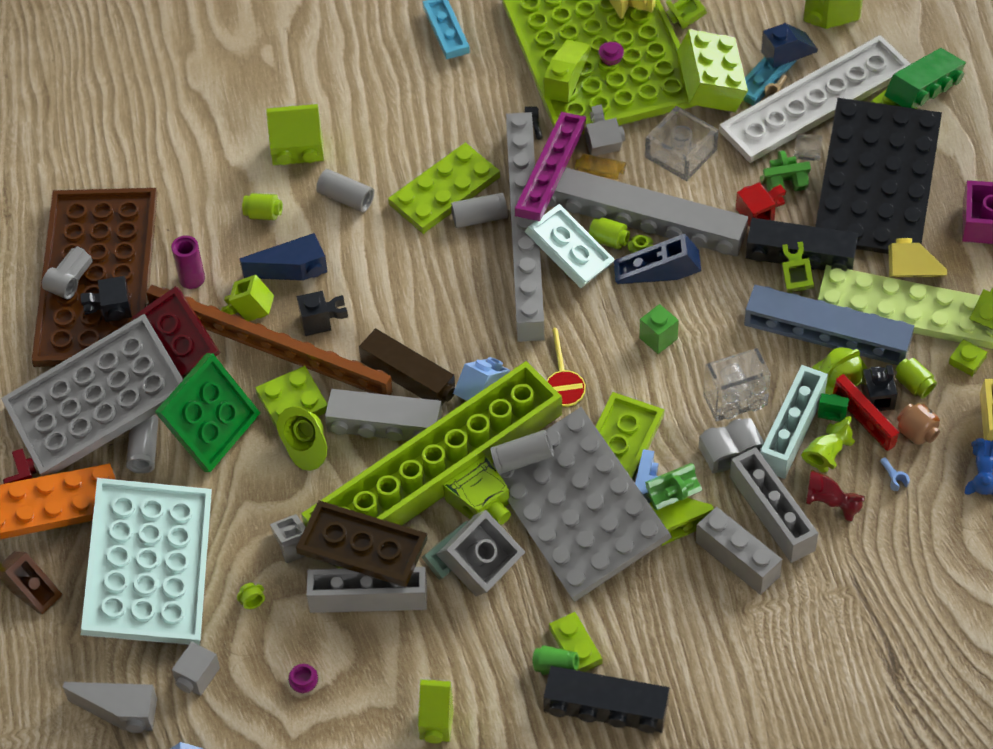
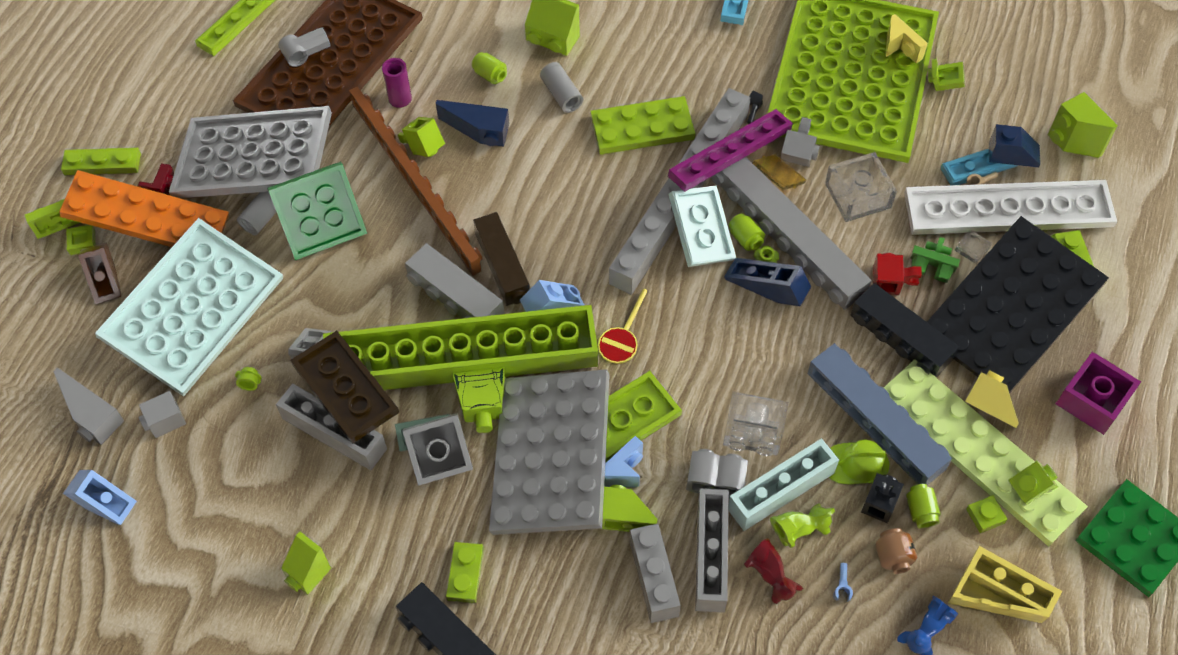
camera: 30 degrees right, 5 degrees up
(112, 299) = (318, 83): black brick -> none
(179, 330) = (348, 134): dark red plate -> none
(290, 390) = (398, 234): lime plate -> none
(302, 437) = (381, 270): lime piece -> none
(303, 678) = (235, 471): magenta plate -> none
(316, 312) = (464, 175): black brick -> none
(479, 210) = (652, 156): light grey pin -> none
(522, 452) = (530, 381): light grey pin -> none
(550, 656) = (433, 577): bright green cone -> none
(565, 70) = (805, 75): lime slope -> none
(611, 53) = (854, 80): magenta plate -> none
(658, 329) = (727, 337): bright green brick -> none
(673, 486) = (632, 484): bright green hips -> none
(712, 70) = (930, 137): lime brick -> none
(797, 271) = (880, 353): lime brick -> none
(832, 407) = (829, 491): green plate -> none
(867, 413) = (854, 513): red tile -> none
(925, 79) = (1117, 239): green brick -> none

